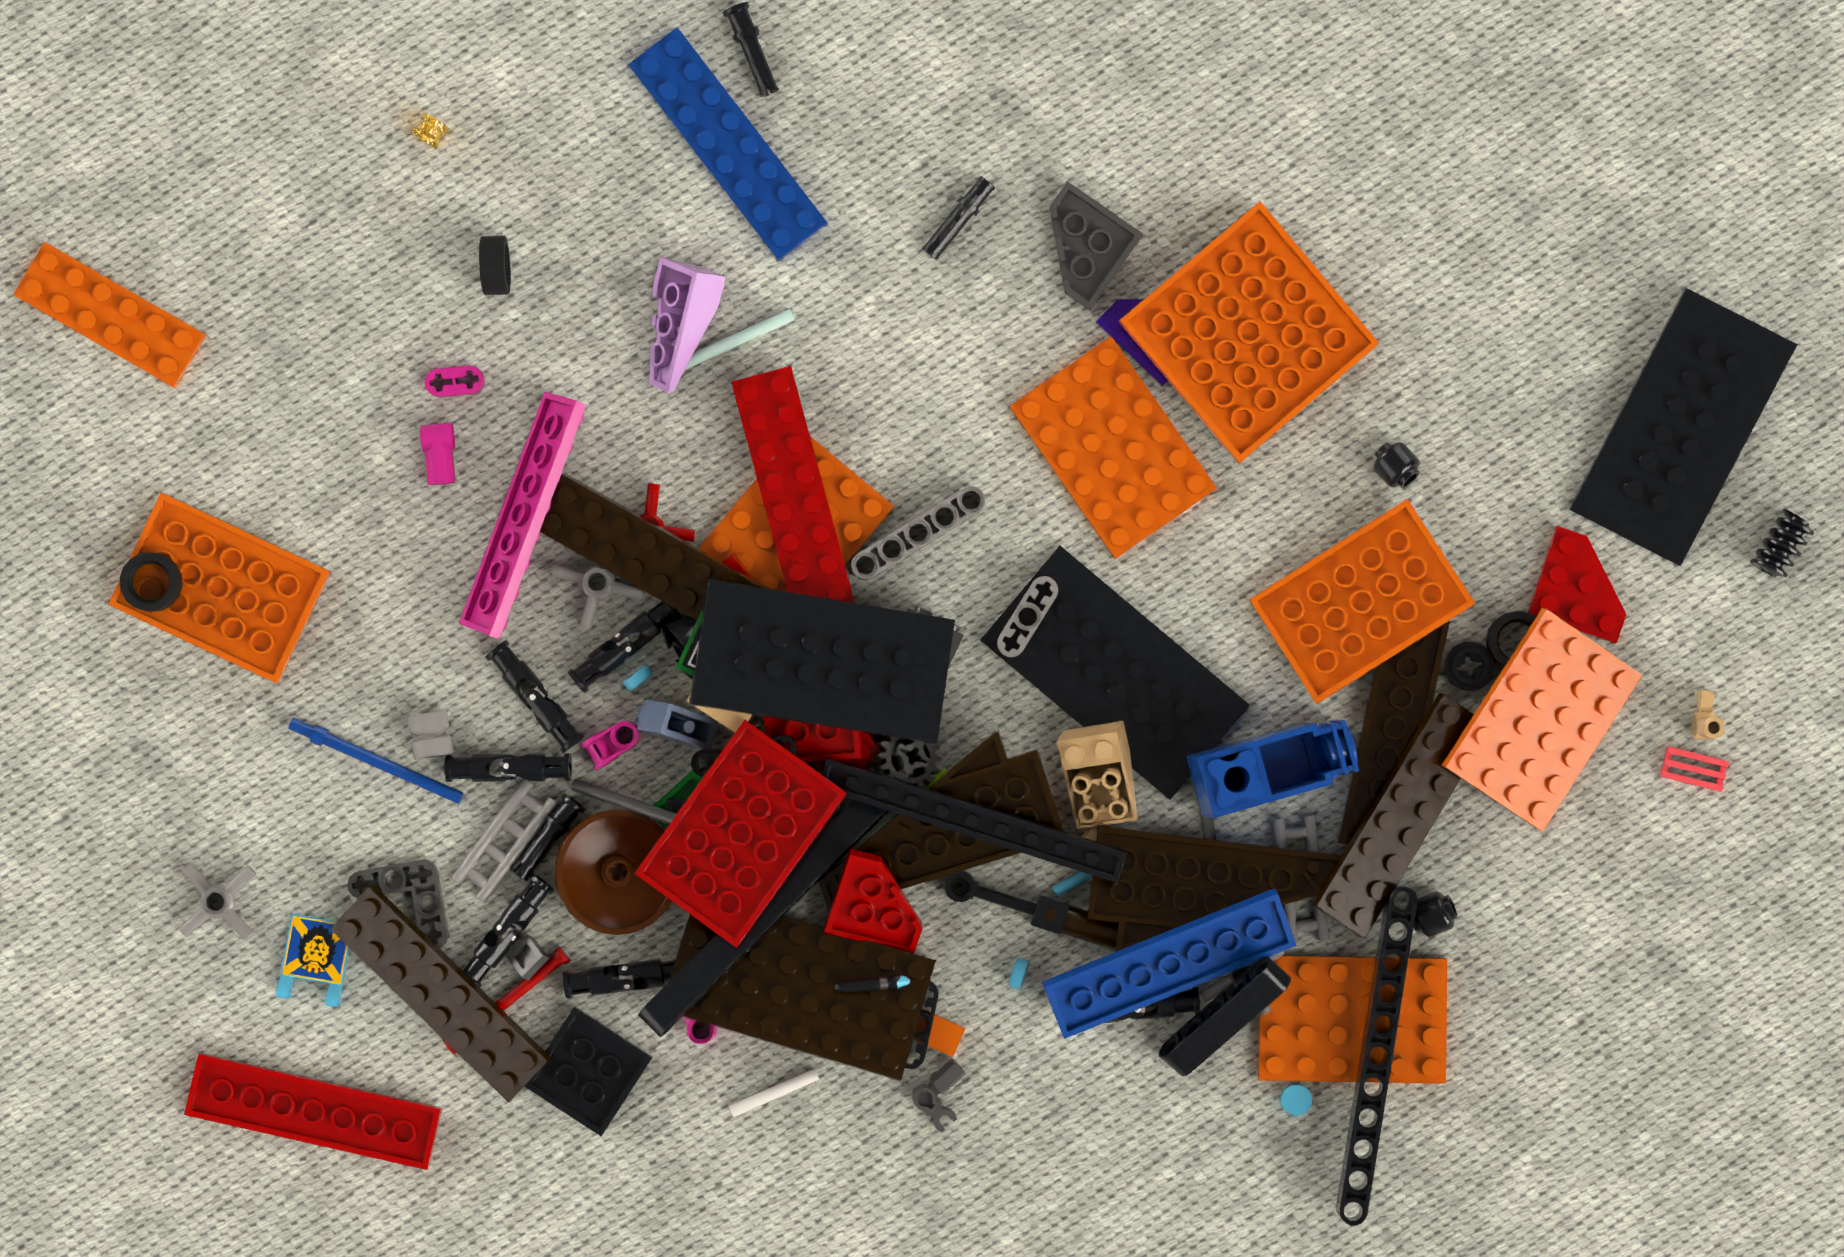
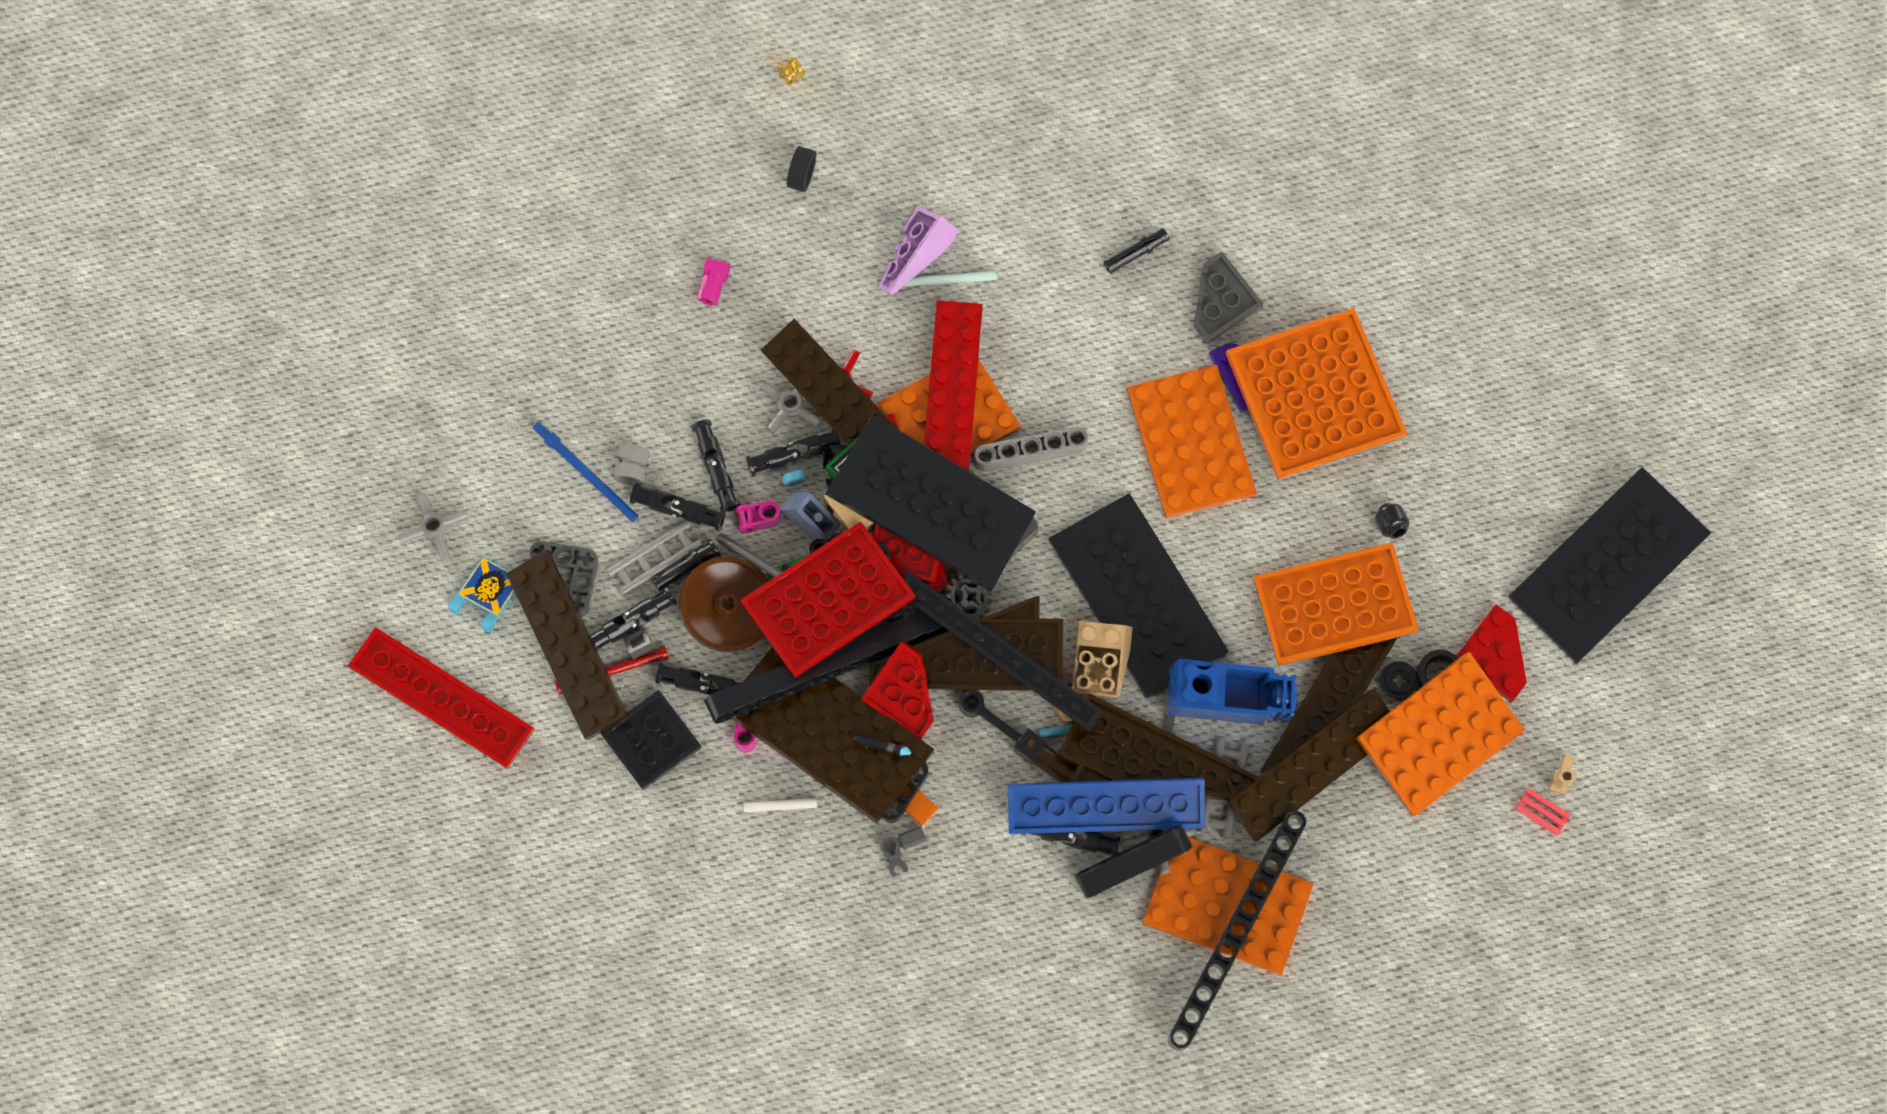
camera: 15 degrees right, 15 degrees down
(109, 315) = (523, 116): orange plate -> none
(127, 576) = (477, 276): black tyre -> none
(237, 589) = (524, 317): orange plate -> none
(453, 374) = (740, 243): dark pink beam -> none
(522, 514) = (755, 339): dark pink plate -> none
(728, 144) = (993, 150): blue plate -> none
(746, 35) = (1032, 84): black pin -> none
(1019, 973) = (992, 781): medium azure tile -> none
(1033, 592) = (1071, 536): light grey beam -> none
(1296, 1099) = (1165, 947): medium azure tile -> none
(1434, 914) = (1314, 846): black head -> none
(1782, 544) = (1656, 672): black piece -> none

